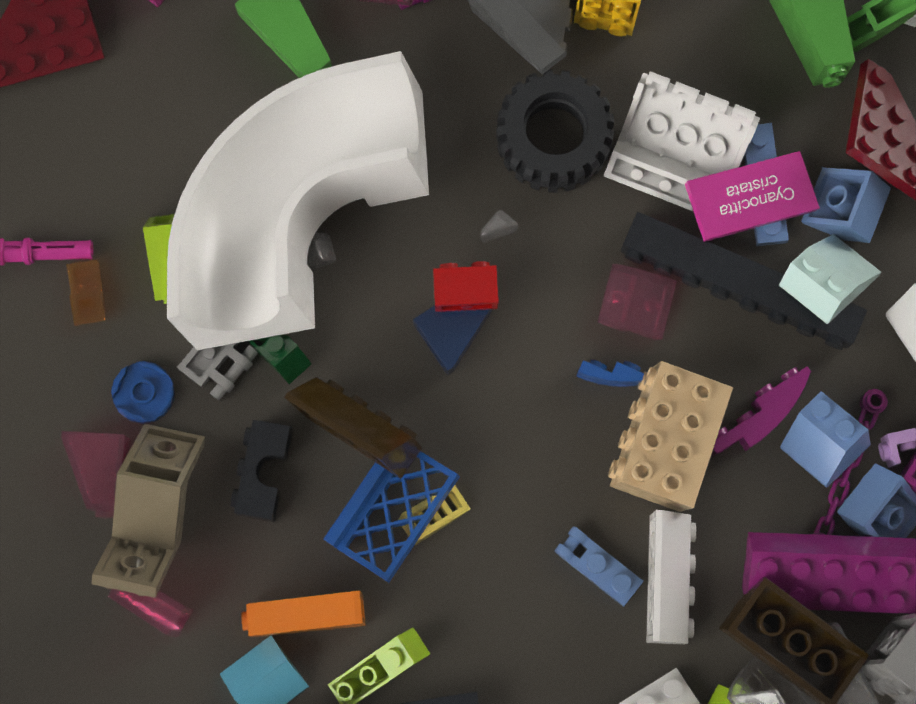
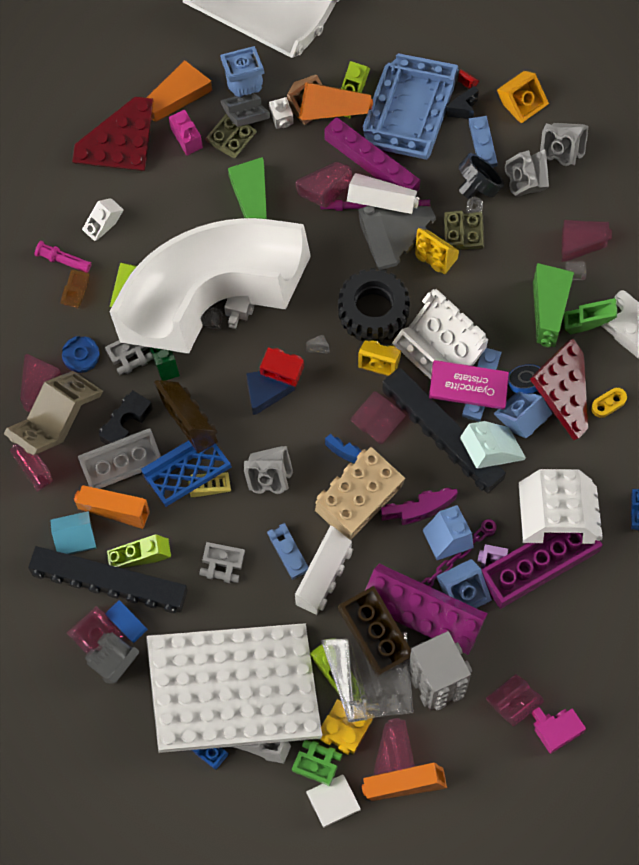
camera: 25 degrees right, 10 degrees down
(77, 163) = (102, 218): none -> white slope
(284, 537) = (119, 459): none -> light grey plate
(351, 220) = (238, 308): none -> white brick
(509, 618) = (225, 557): none -> light grey plate
(516, 457) = (268, 470): none -> light grey piece
(599, 208) = (378, 357): none -> yellow slope
(825, 150) = (520, 379): none -> tile

